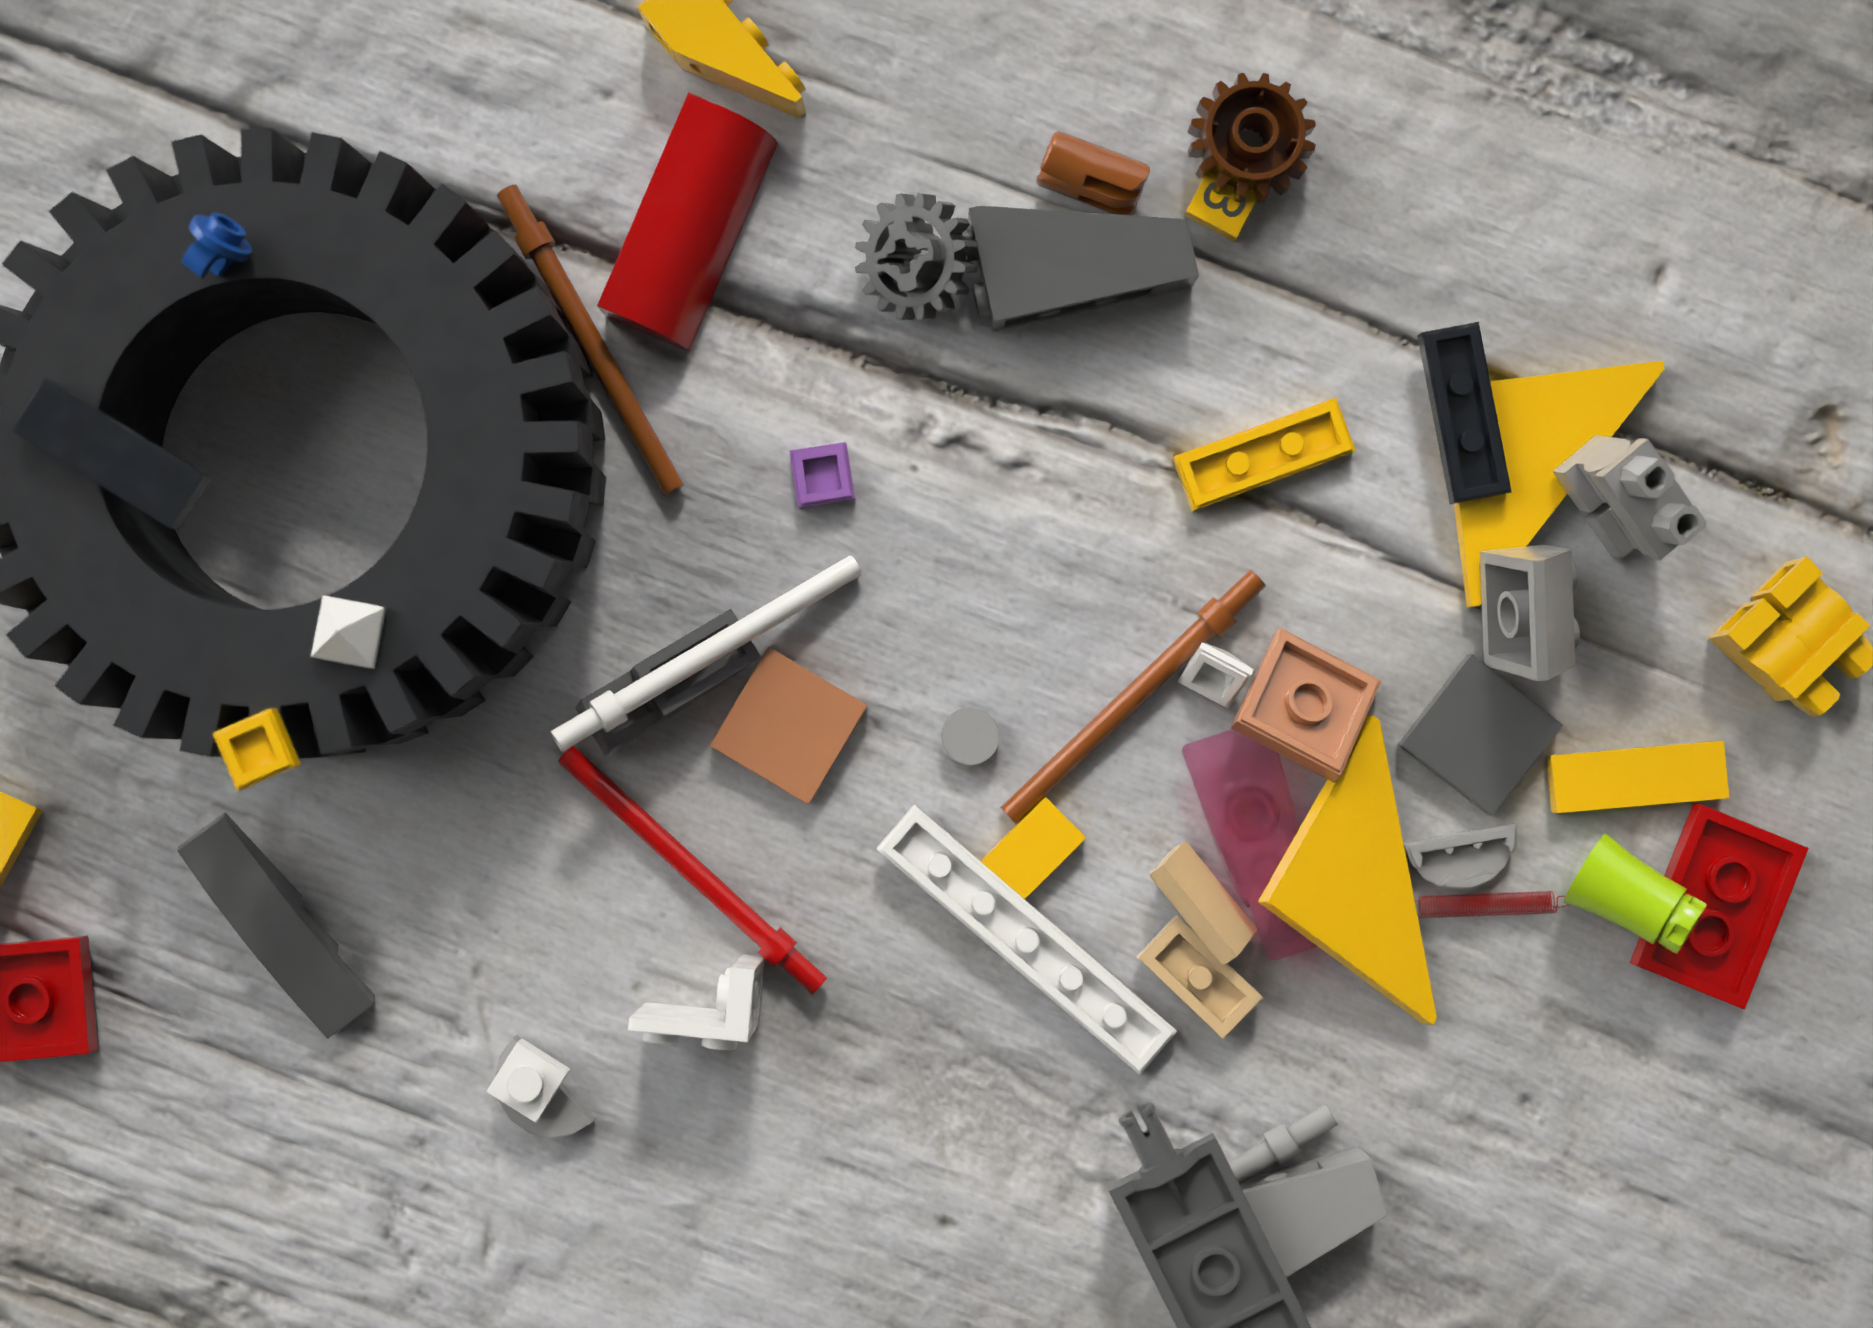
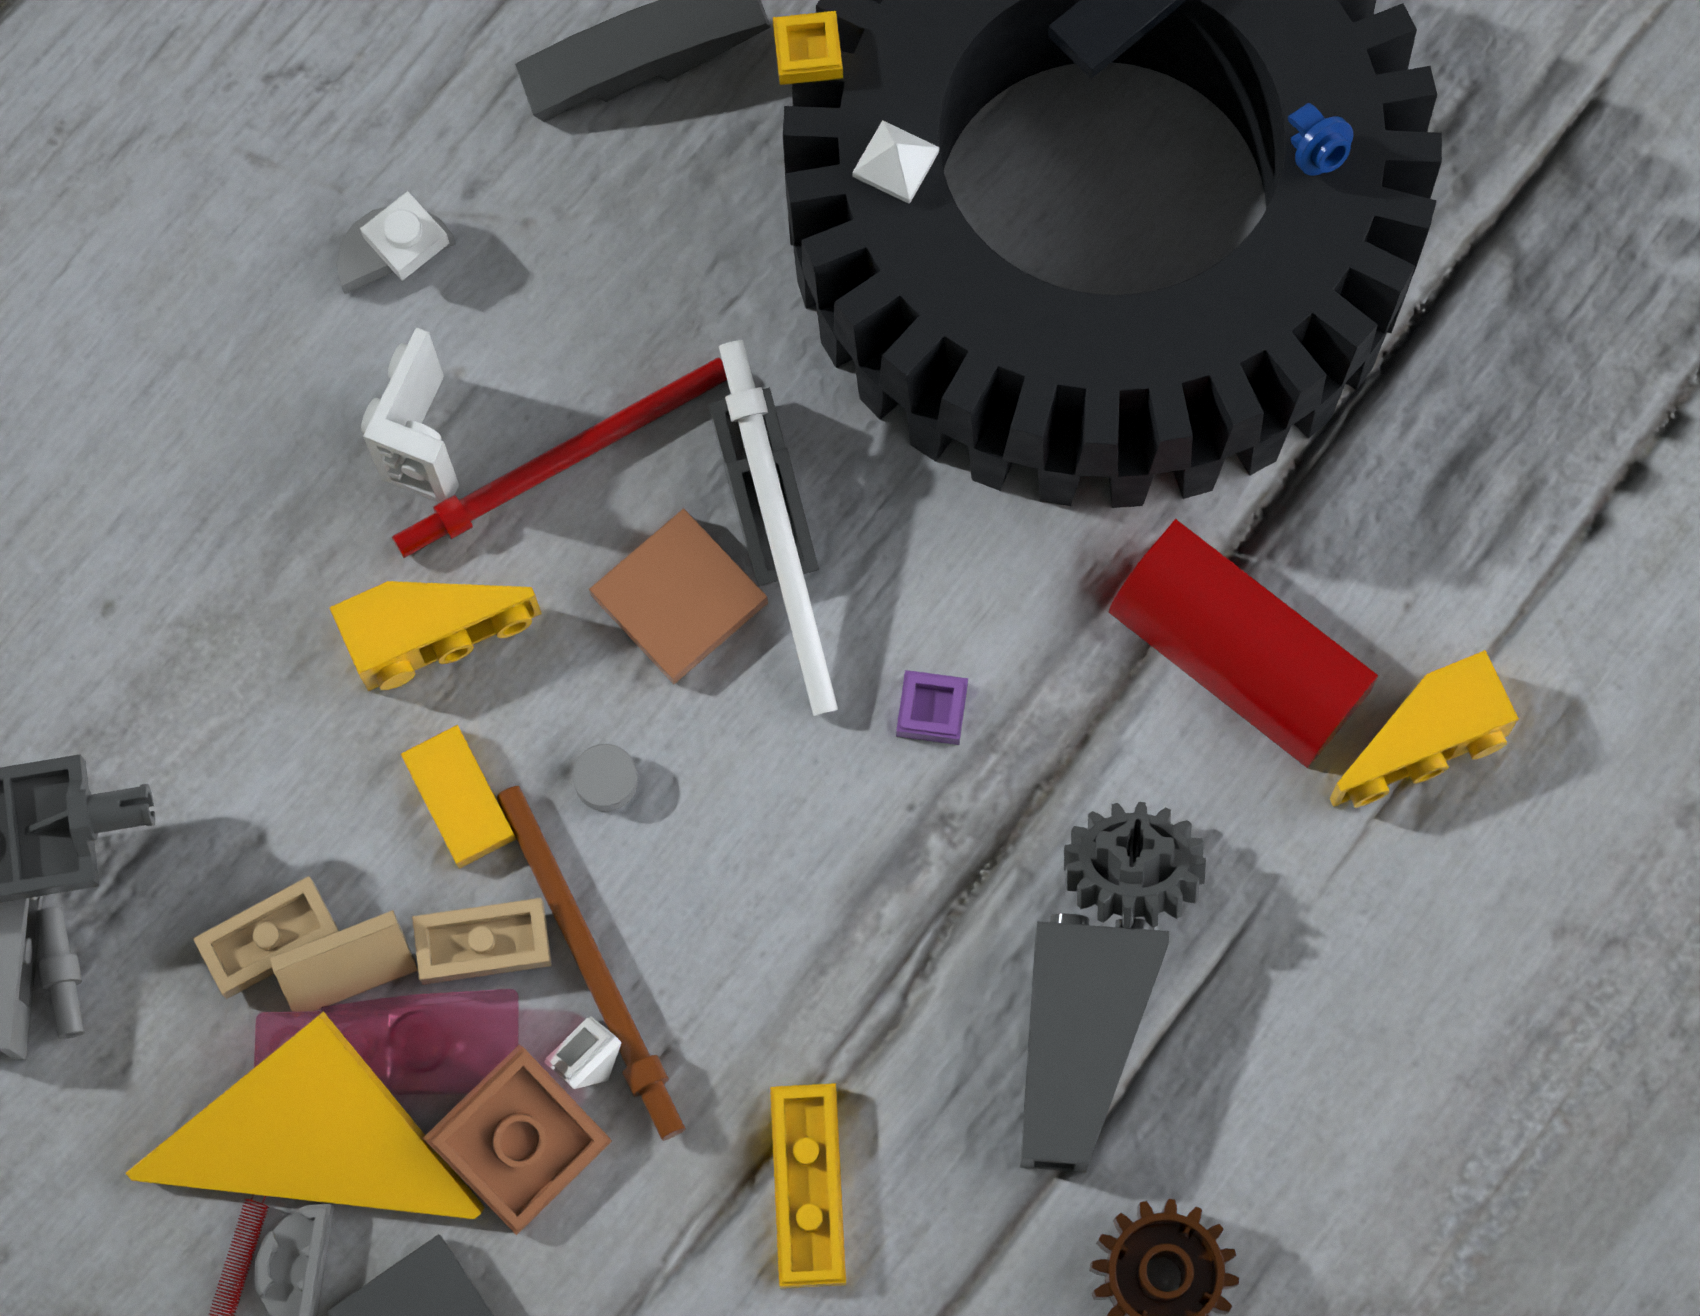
camera: 110 degrees right, 15 degrees down
(537, 244) = (1267, 487): dark orange bar -> none
(889, 949) = (417, 623): none -> yellow slope
(1026, 939) = (369, 771): white tile -> none
(1092, 174) = (1173, 1085): dark orange arm -> none
(1146, 792) = (481, 941): none -> tan plate
(1220, 210) = (1096, 1217): yellow tile -> none

